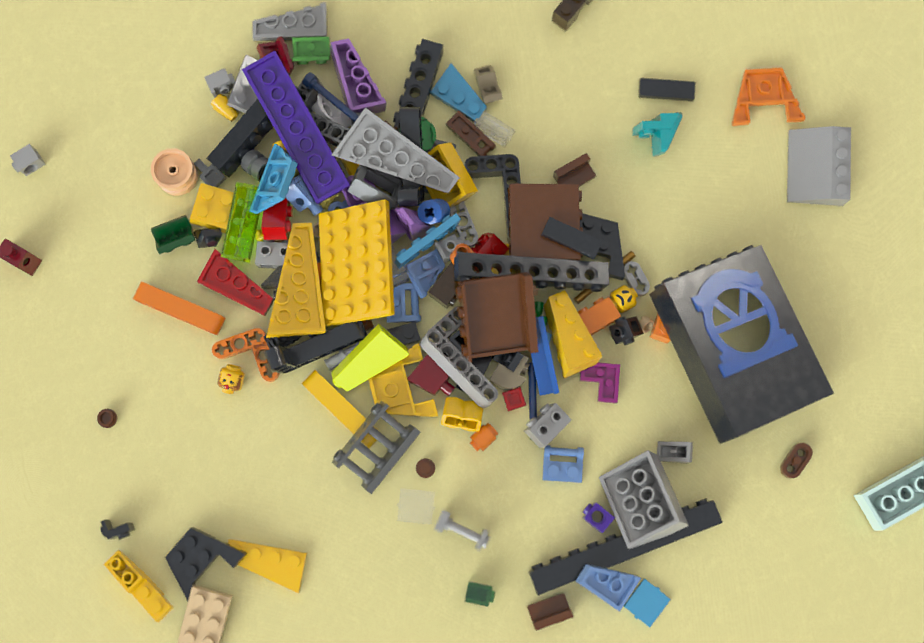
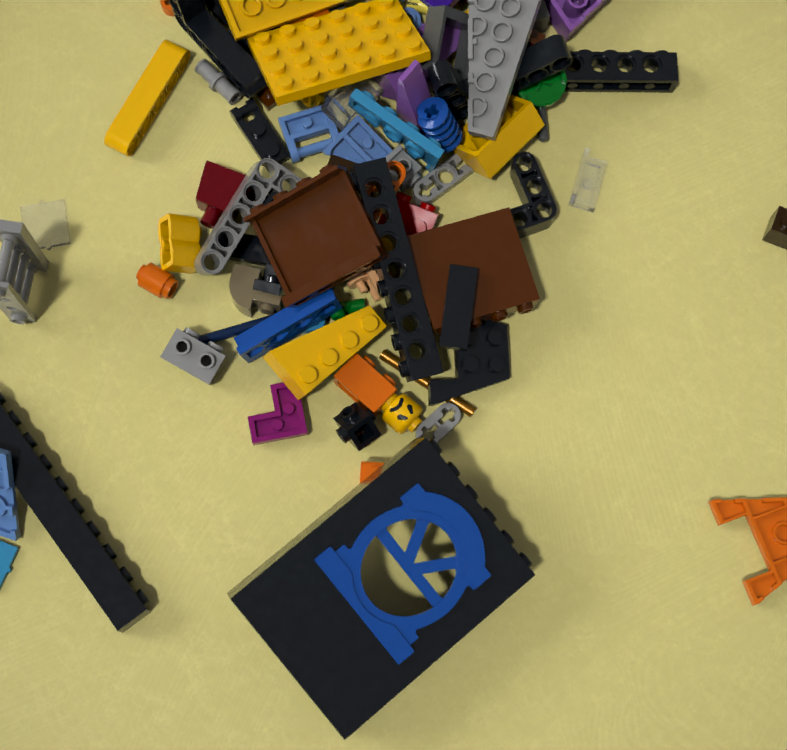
camera: 70 degrees right, 5 degrees down
(368, 358) = (225, 110): neon yellow slope -> none
(384, 464) = (87, 165): dark grey fence -> none
(393, 389) = (183, 155): yellow wing -> none
(425, 468) = (97, 221): reddish brown plate -> none
(458, 94) = (619, 124): dark azure wing -> none
(470, 134) = (568, 153): reddish brown plate -> none
(487, 84) = (646, 157): dark tan slope -> none
(514, 399) = (221, 309): red tile -> none
(563, 470) = (140, 399): medium blue plate -> none
(575, 172) = (562, 303): reddish brown panel -> none
(606, 518) = (88, 470): dark purple brick -> none
(643, 500) = (121, 510): light grey slope -> none
(646, 324) = (373, 449): tan hinge -> none
(662, 130) = (665, 399): teal piece -> none
(666, 89) = (728, 396): black tile -> none
(675, 452) = (204, 541): light grey slope -> none
(797, 462) = (239, 720): reddish brown plate -> none
(819, 165) = (691, 643): light grey slope -> none

